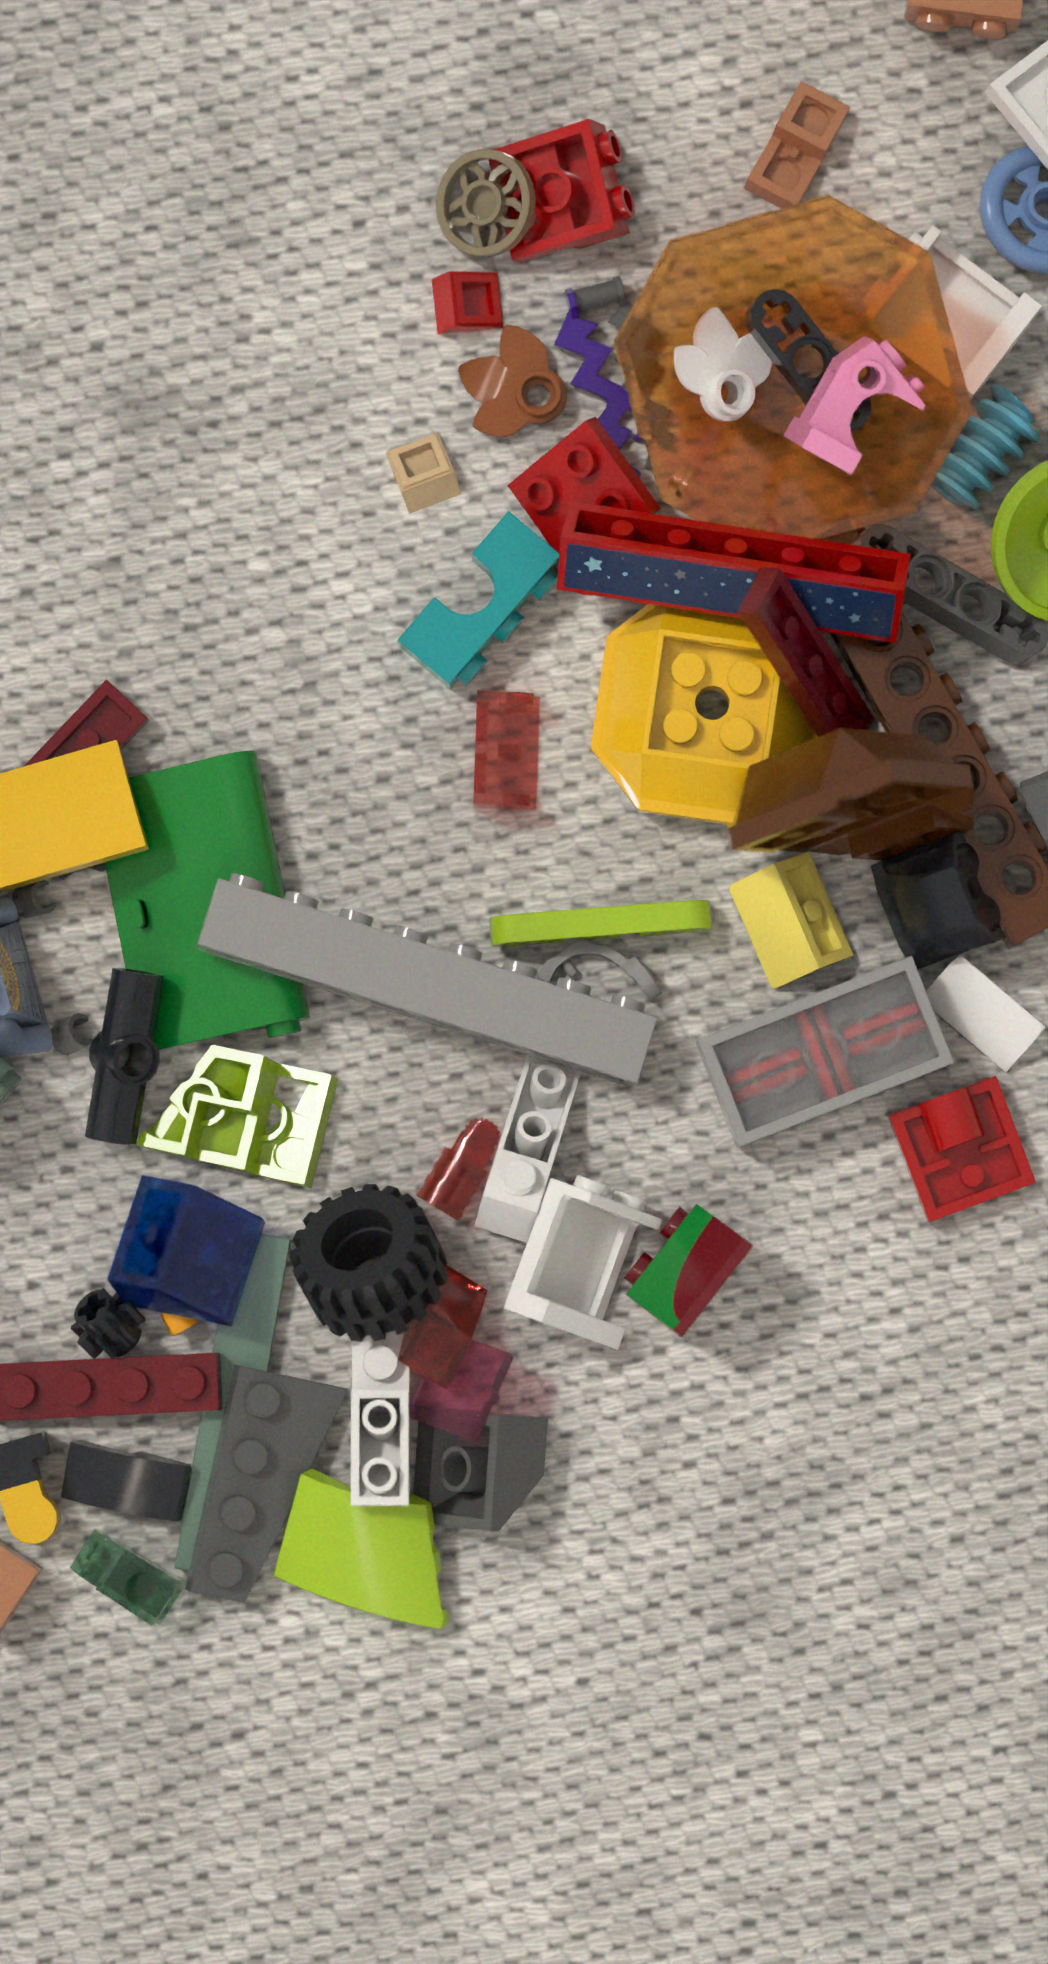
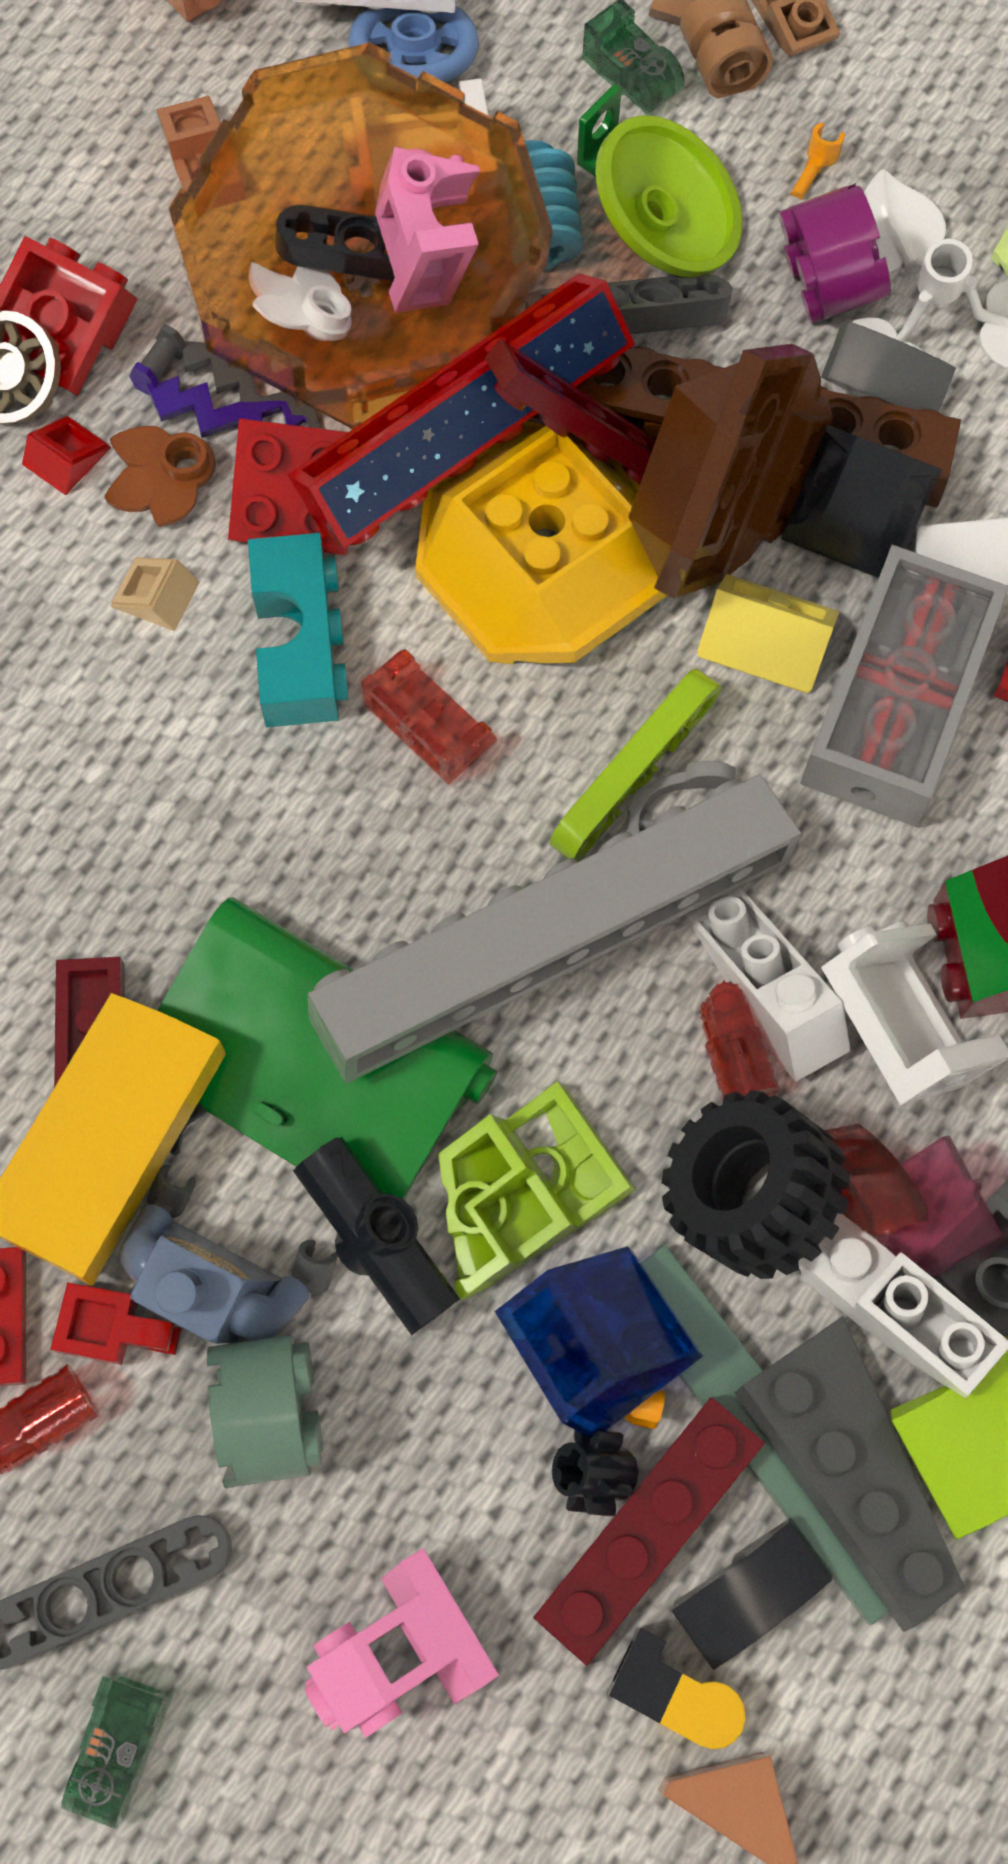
camera: 50 degrees left, 15 degrees down
(128, 1577) = (843, 1677): clear green leg -> none

